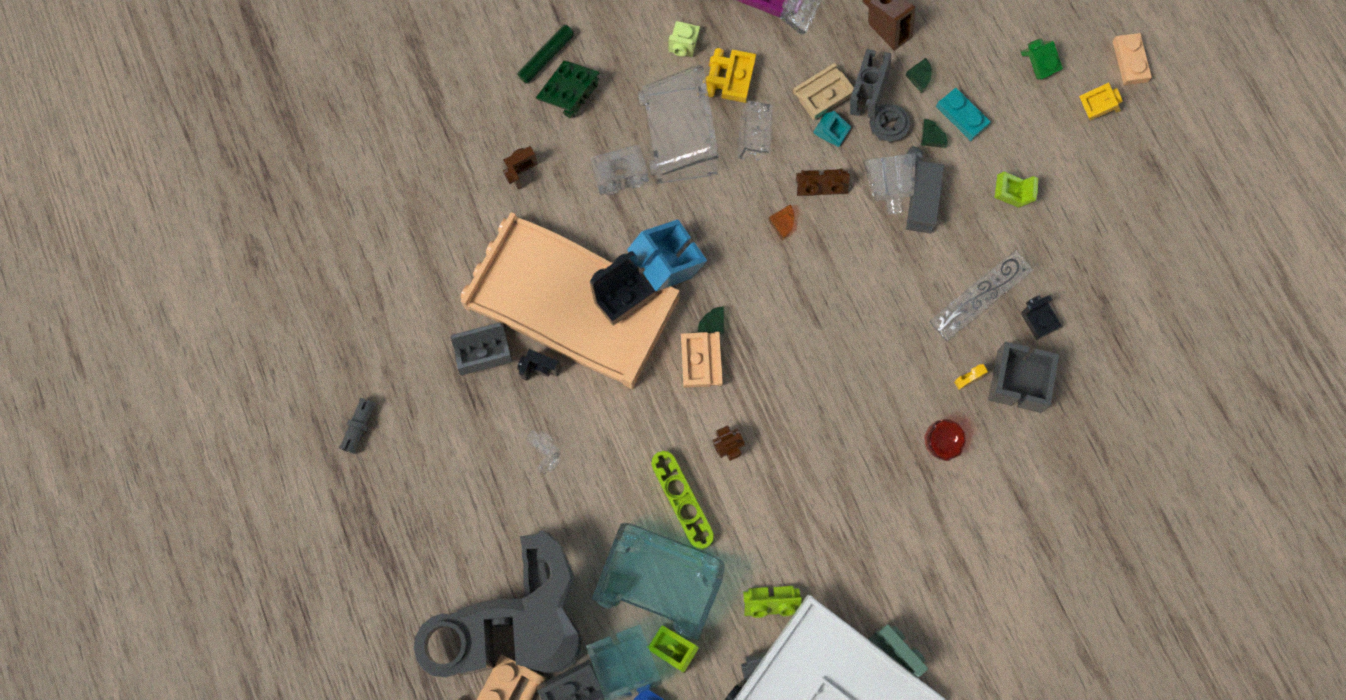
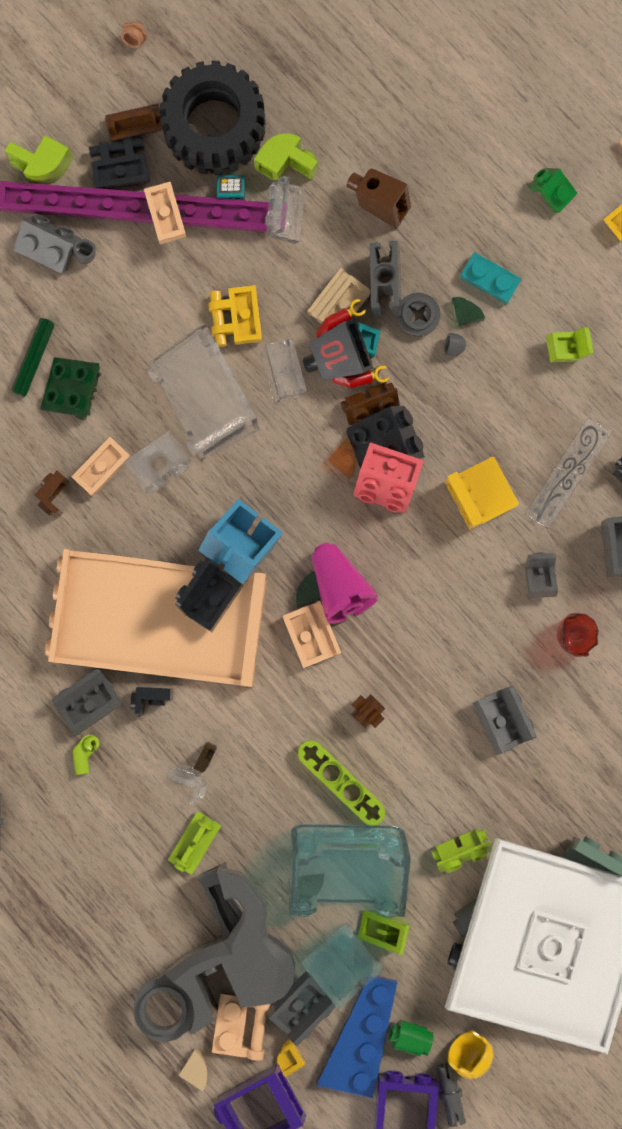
camera: 20 degrees left, 10 degrees up
(460, 393) = (83, 751): none -> lime arm
(529, 507) = (194, 843): none -> lime hinge
(566, 434) = (205, 757): none -> dark brown tile
(568, 158) = (101, 466): none -> light nougat plate
(683, 39) = (173, 291): yellowish green bracket -> none
(743, 325) = (340, 584): none -> dark pink cone
(811, 128) = (341, 351): none -> torso
(815, 245) = (387, 478): none -> coral bracket
(824, 216) = (389, 429): none -> black bracket
(852, 493) = (505, 719): none -> dark grey bracket
(891, 179) = (441, 378): clear torso -> none
(895, 288) = (481, 492): none -> yellow bracket
(920, 75) = (433, 248): clear green tile -> none
(926, 197) = (480, 385): dark grey piece -> none
(927, 376) = (541, 575): none -> flat silver bracket
(976, 374) = (583, 559): yellow tile -> none

